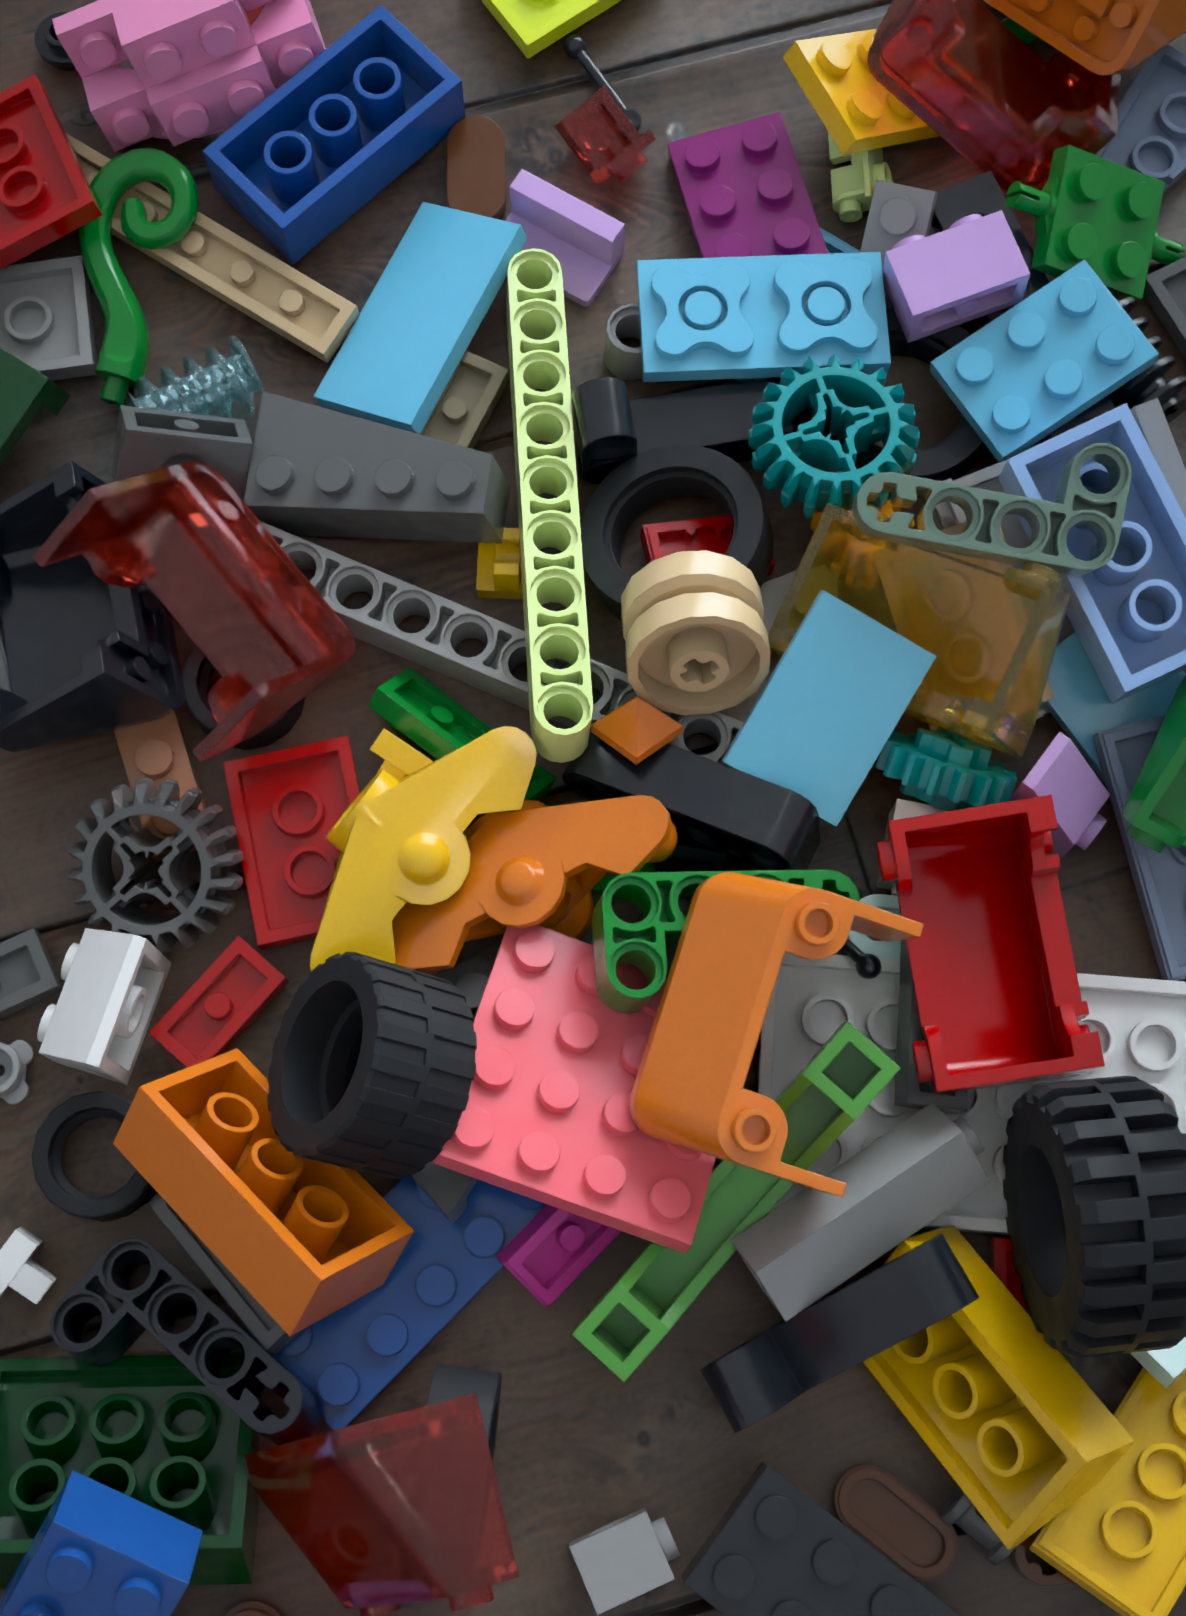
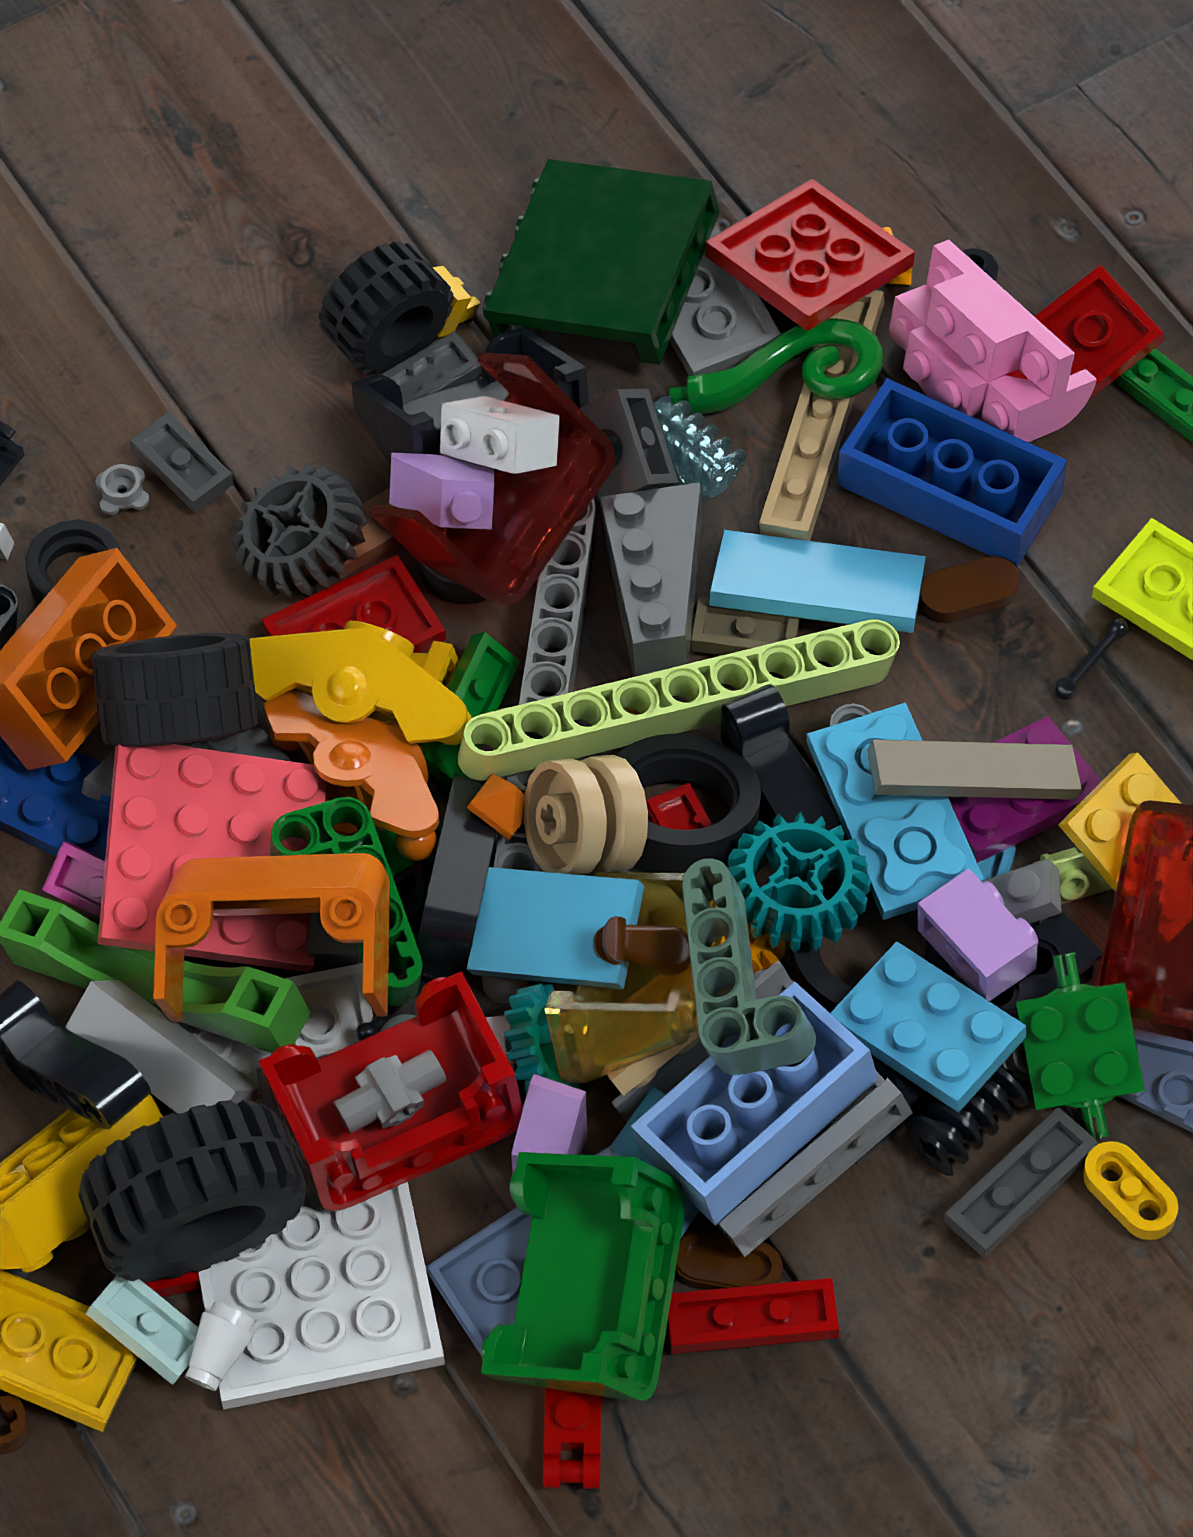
camera: 75 degrees right, 15 degrees down
(104, 1004) = (184, 537): white slope -> none
(151, 575) = (499, 434): none -> white brick
(191, 665) = (443, 489): none -> lavender slope
(219, 1005) = (208, 608): red plate -> none
(573, 231) = (927, 663): lavender panel -> none
(604, 138) = (1033, 667): clear red bracket -> none
(750, 217) = (973, 769): none -> dark tan tile
(904, 610) = (645, 945): none -> reddish brown piece
(992, 953) = (389, 1091): none -> light grey axle

